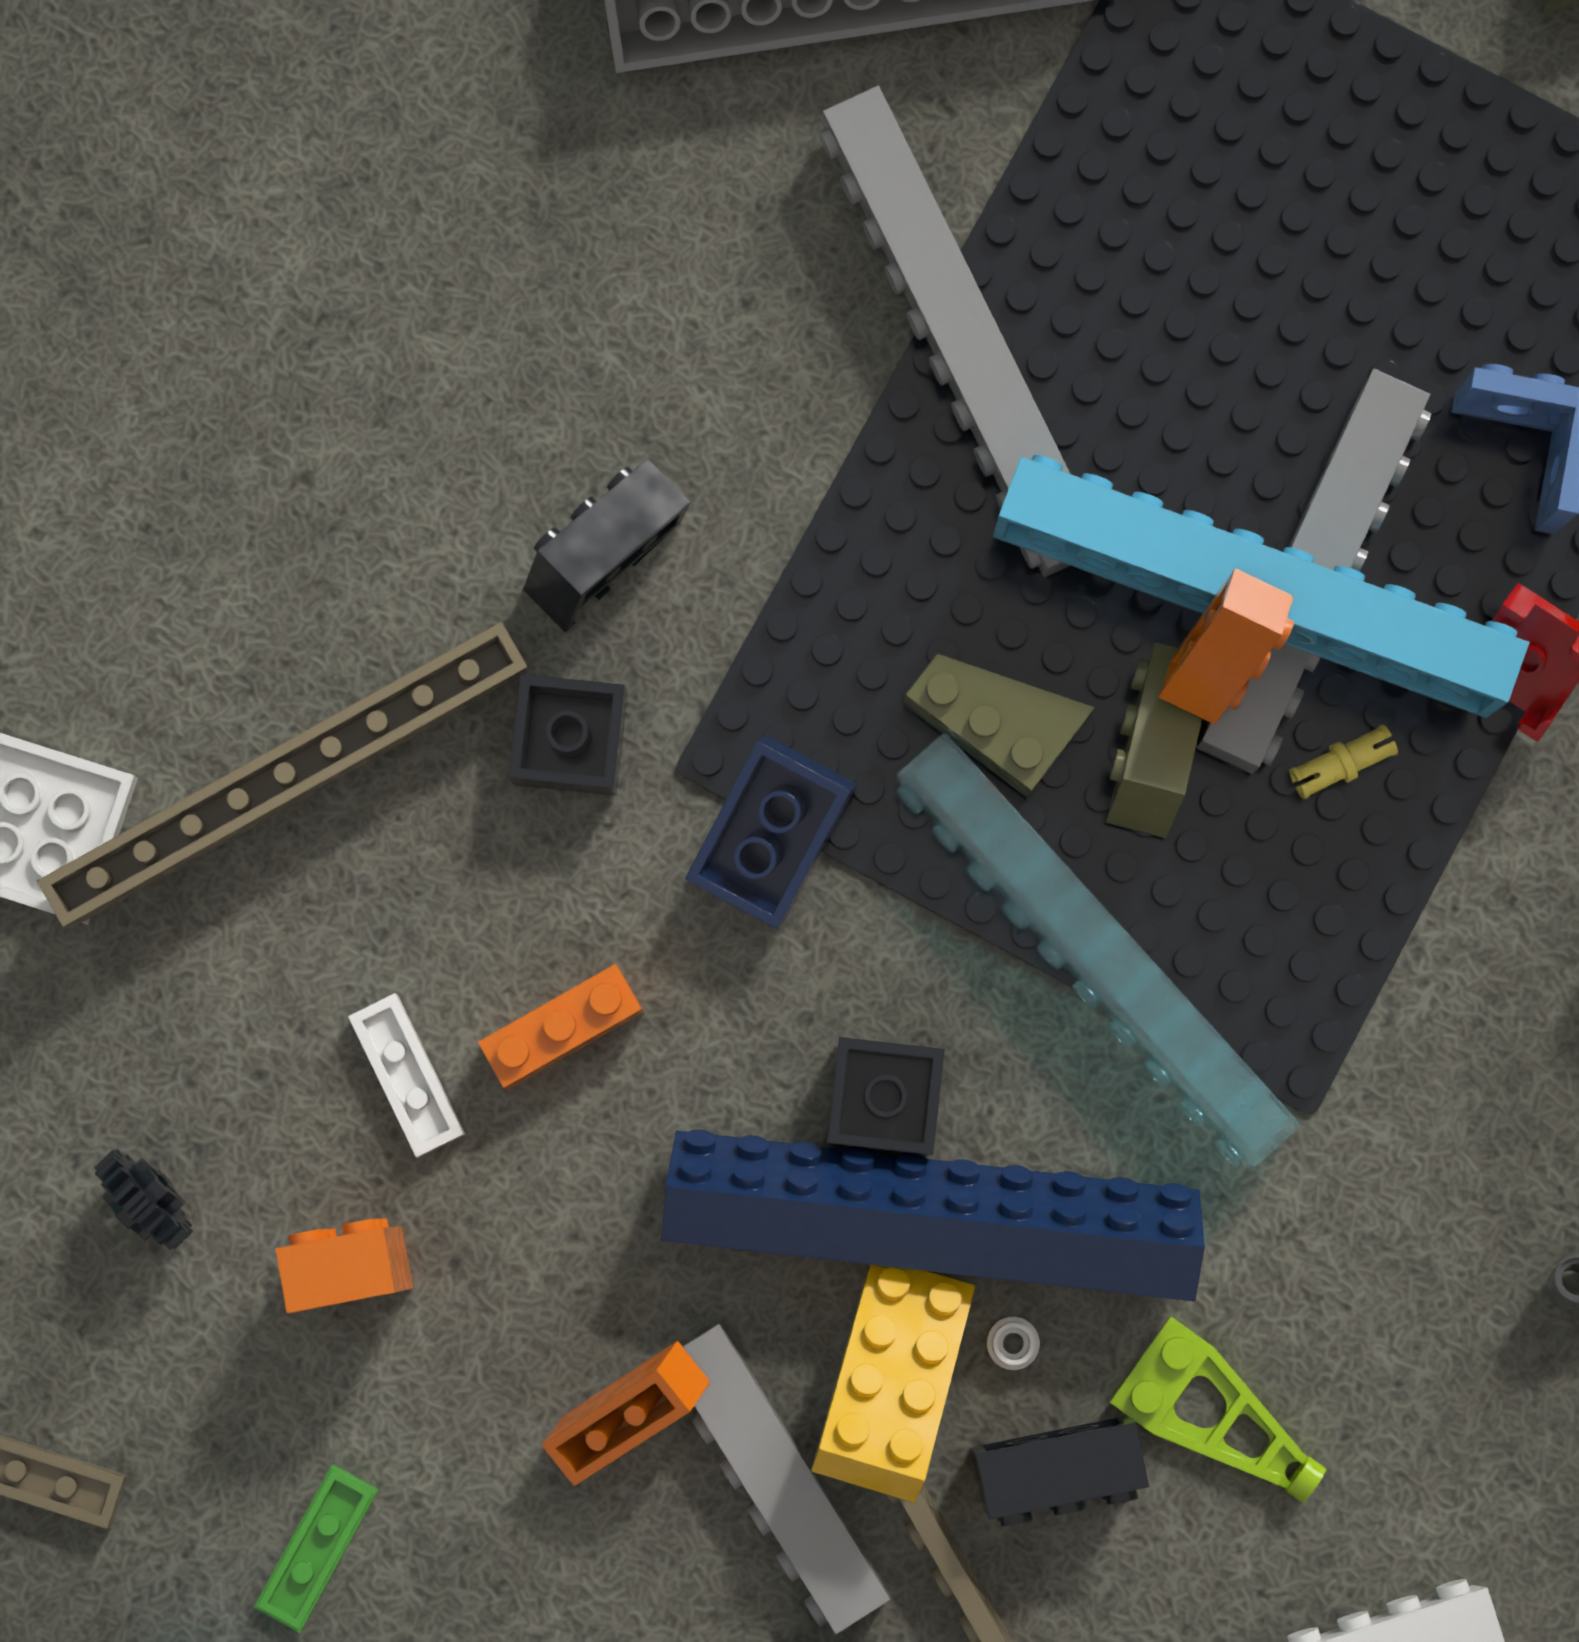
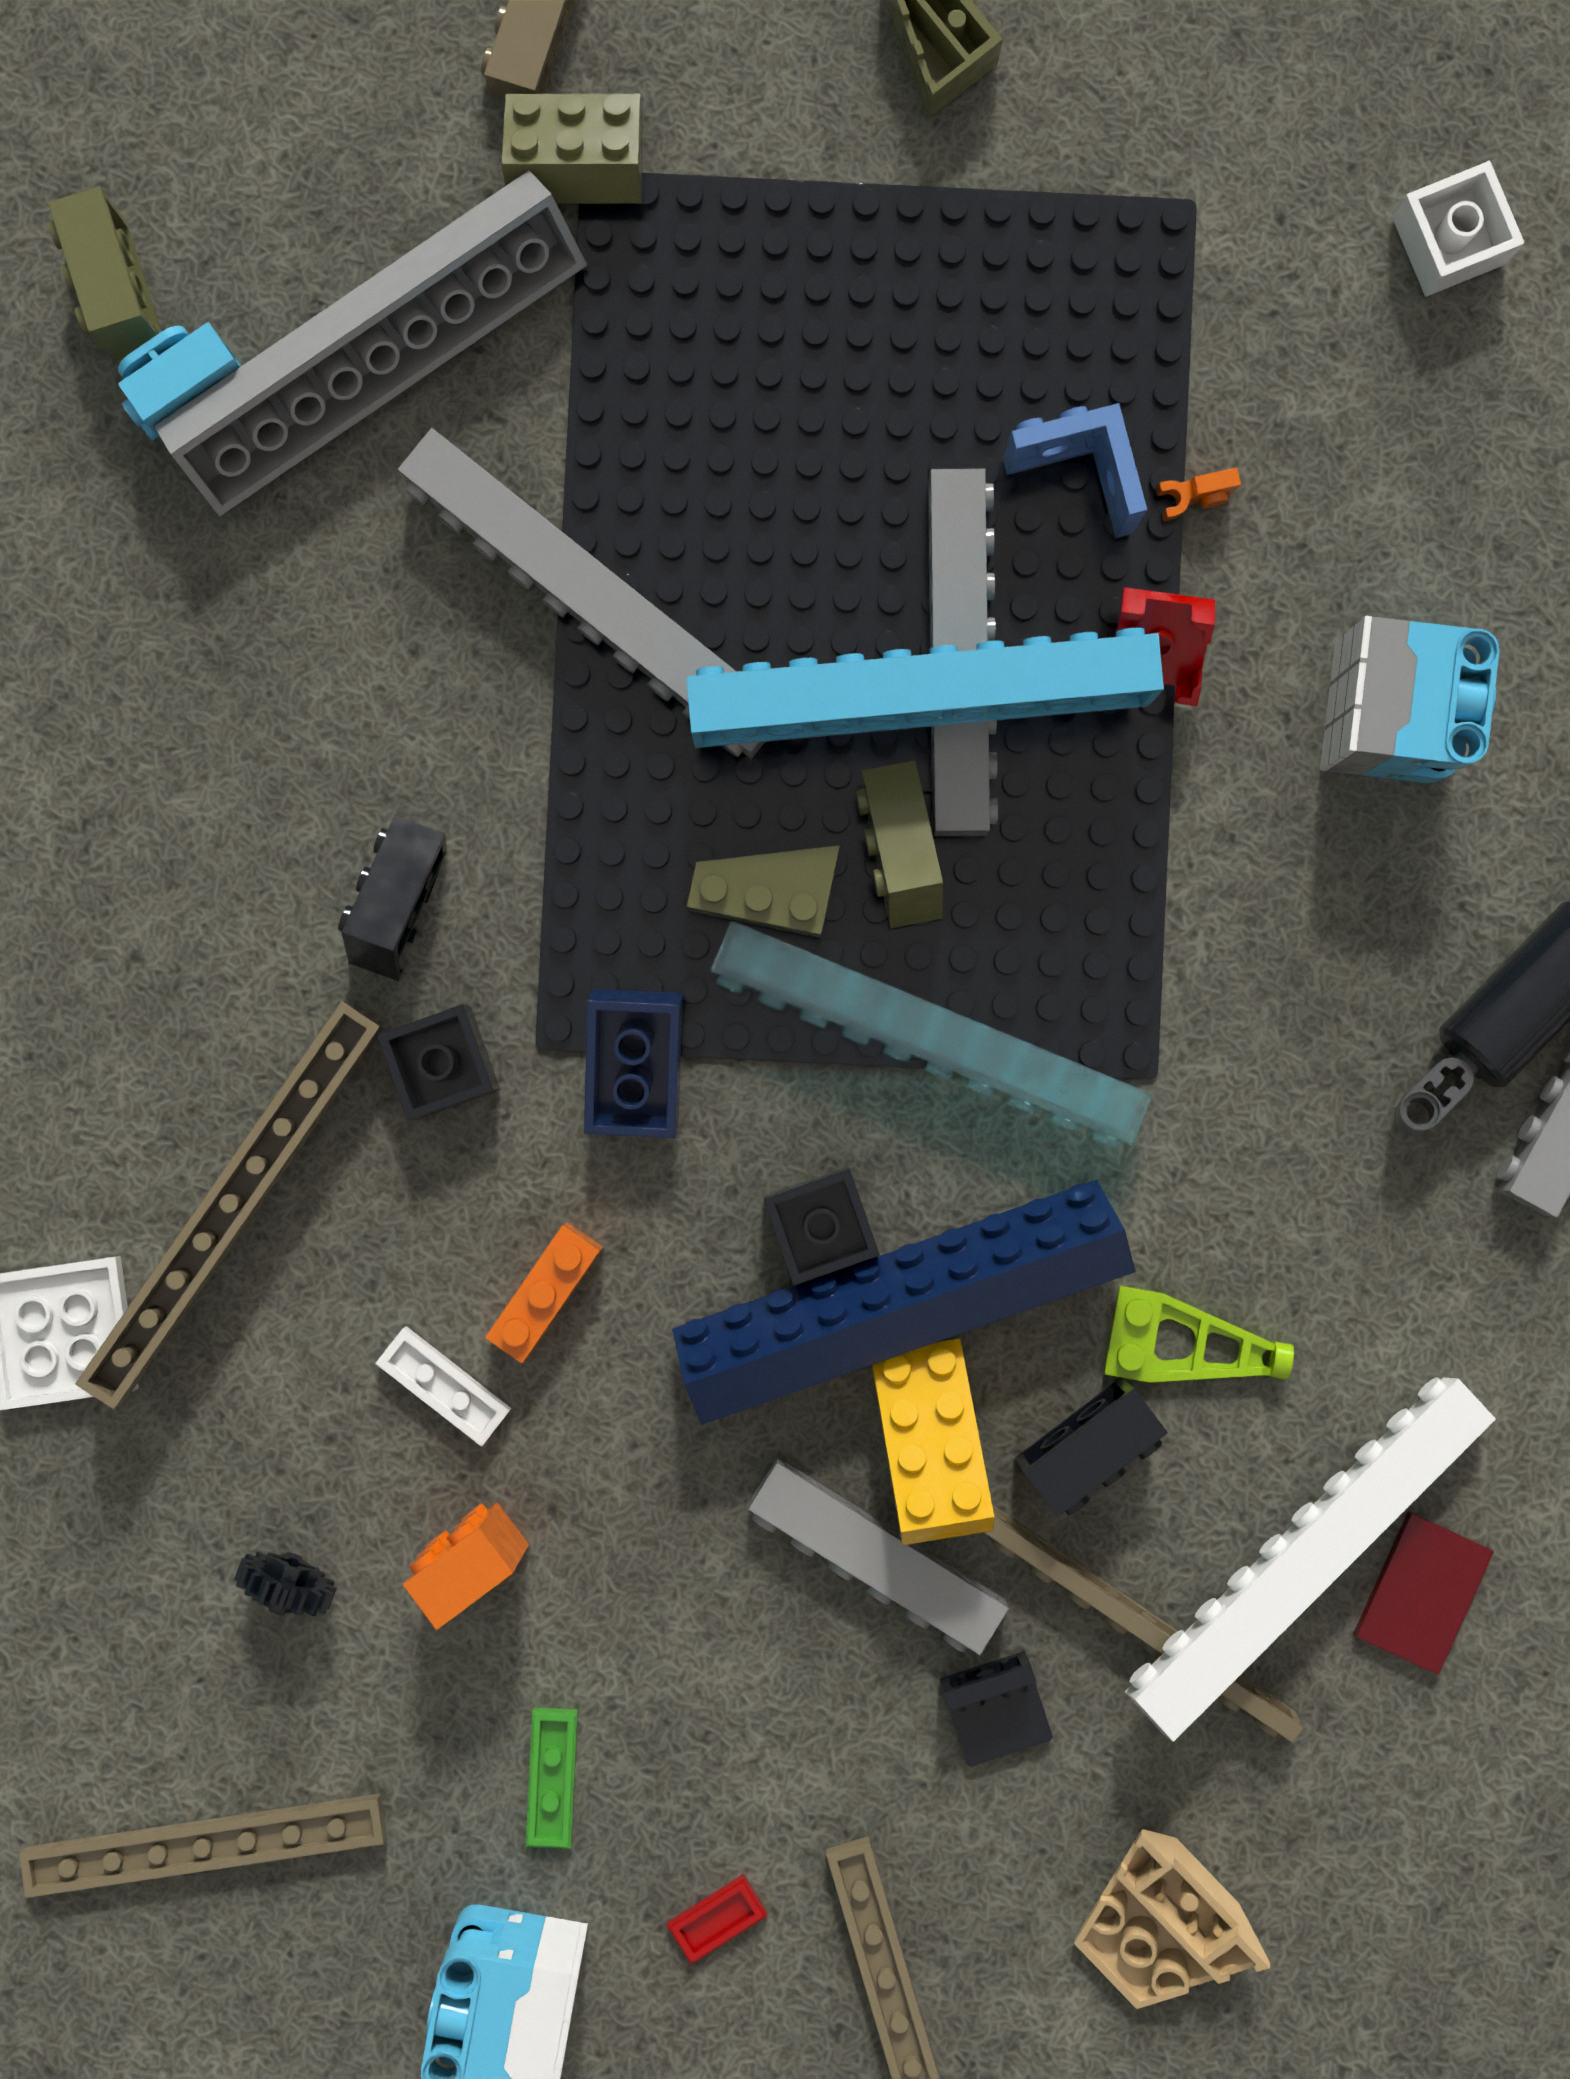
camera: 25 degrees left, 5 degrees up
(626, 1413) = (739, 1567): orange brick -> none
(1030, 1346) = (1013, 1378): white plate -> none
(1228, 647) = (922, 750): orange brick -> none
(1343, 761) = (1052, 792): light yellow pin -> none

